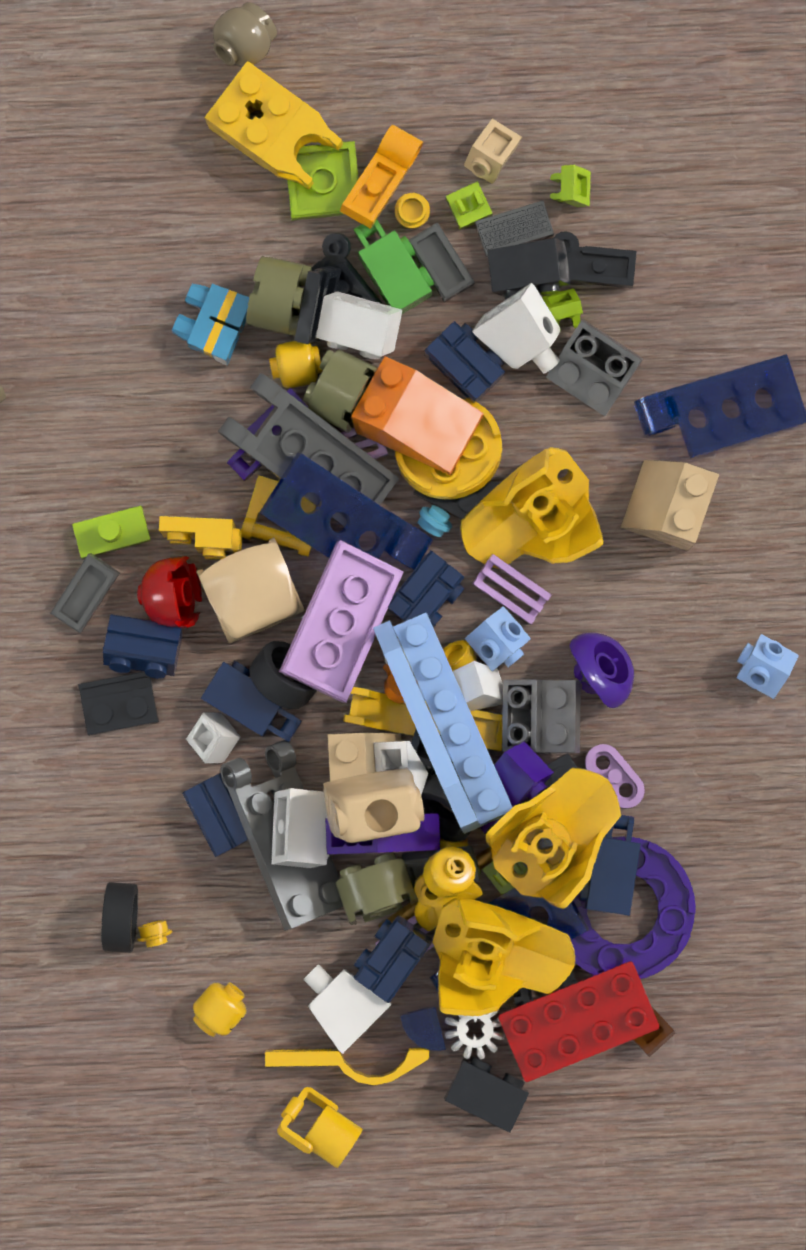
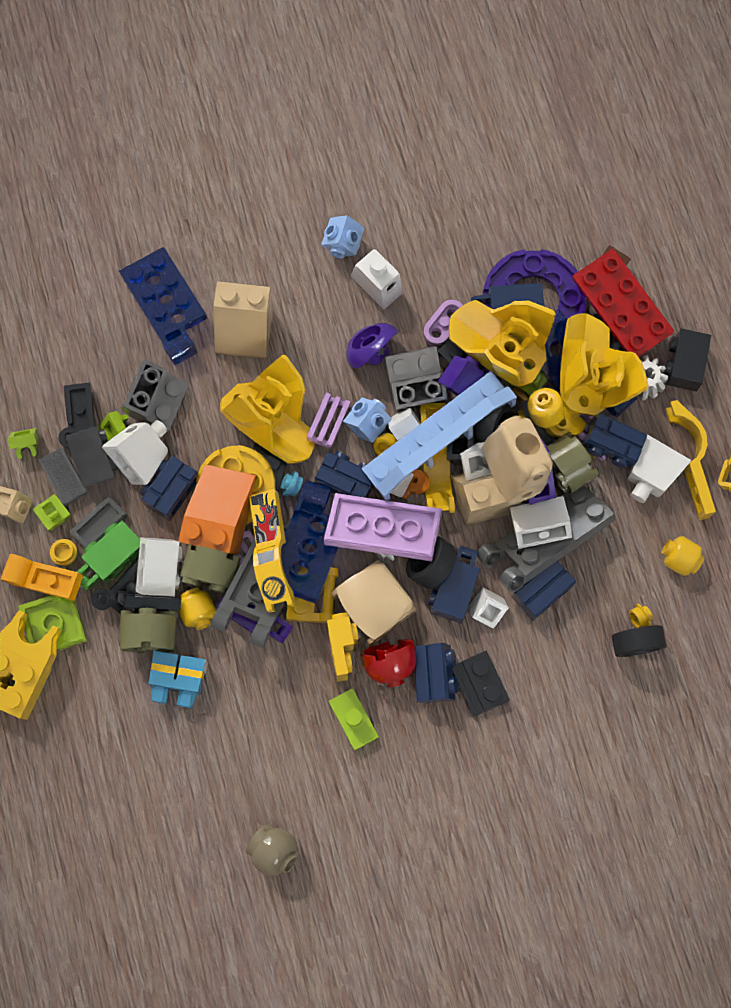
camera: 105 degrees left, 10 degrees down
(85, 593) = (404, 727): dark grey tile -> none
(354, 470) = (267, 553): none -> piece
(424, 1028) = (654, 411): clear blue brick -> none
(694, 700) = (375, 275): none -> white torso

